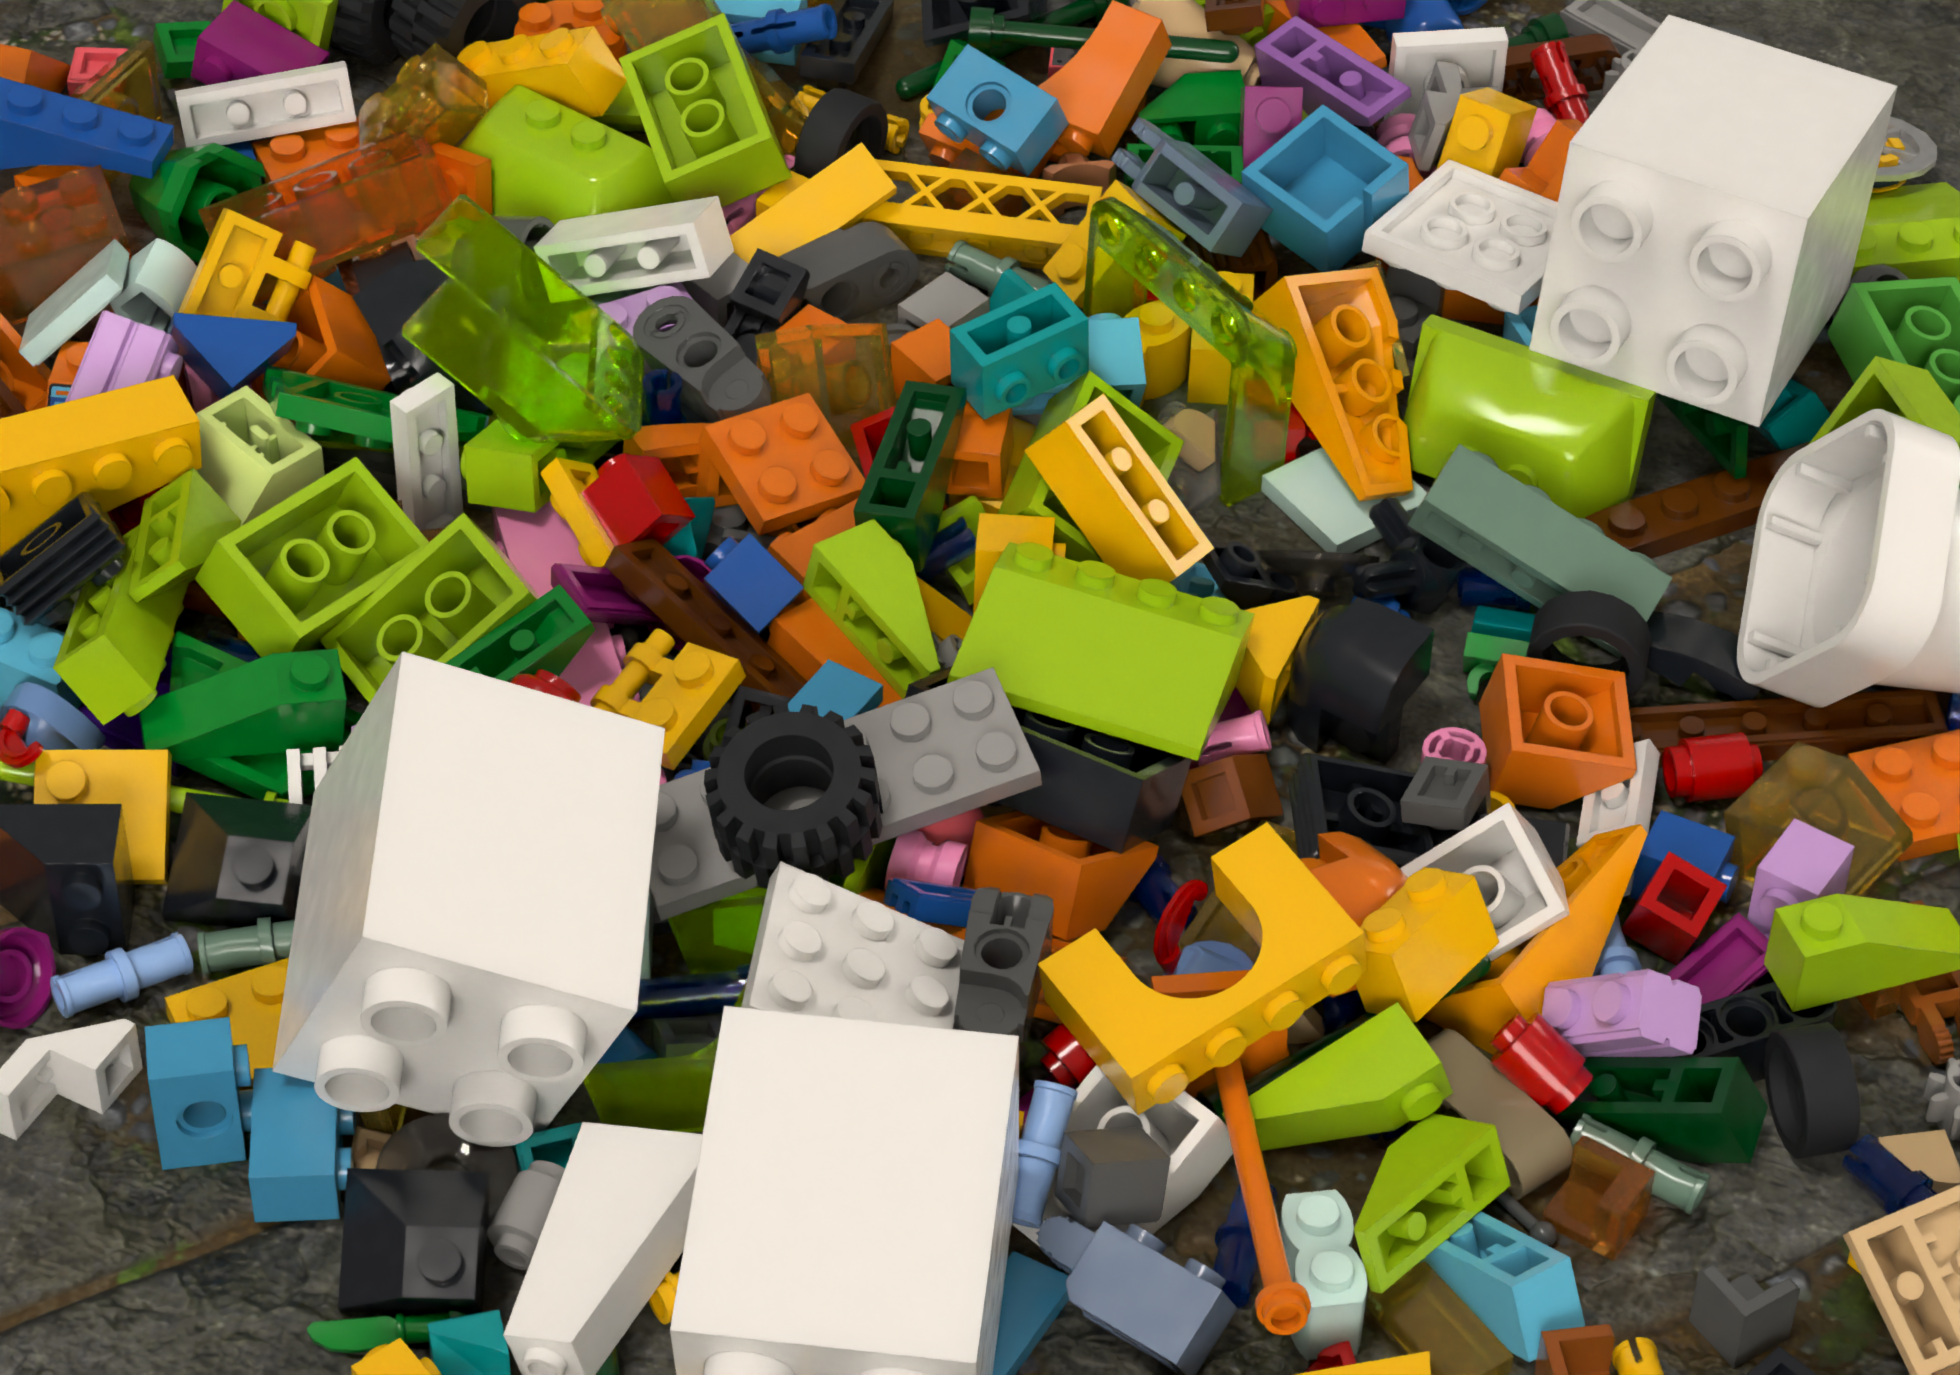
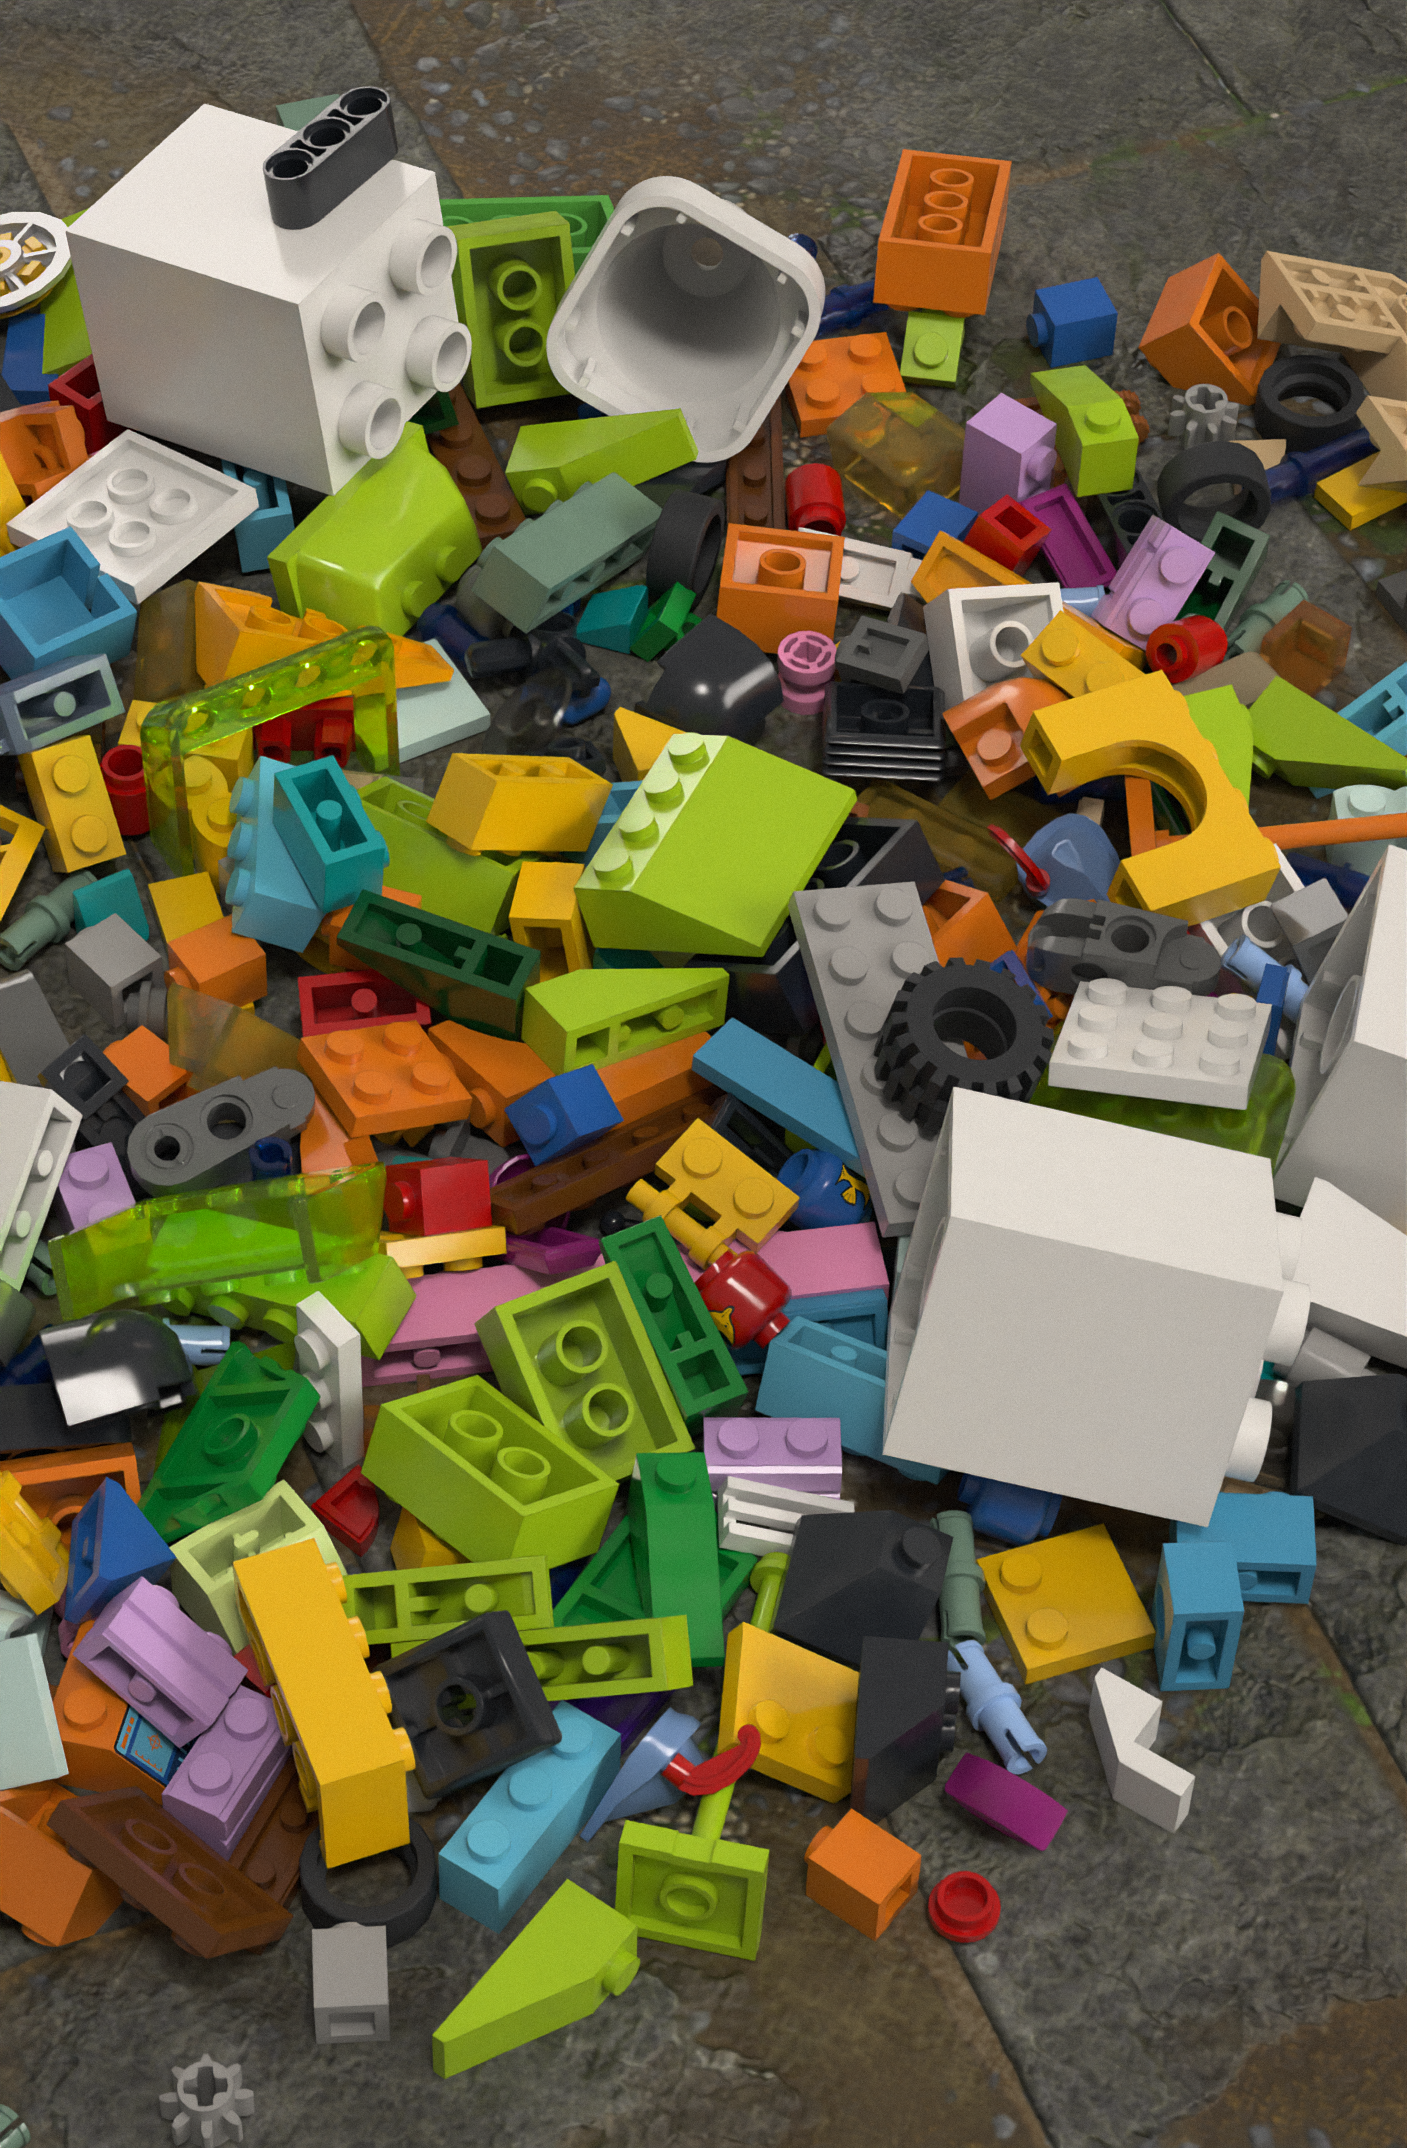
camera: 85 degrees left, 5 degrees up
(1704, 568) = (559, 457): none -> lime slope
(1784, 134) = (330, 157): none -> black beam

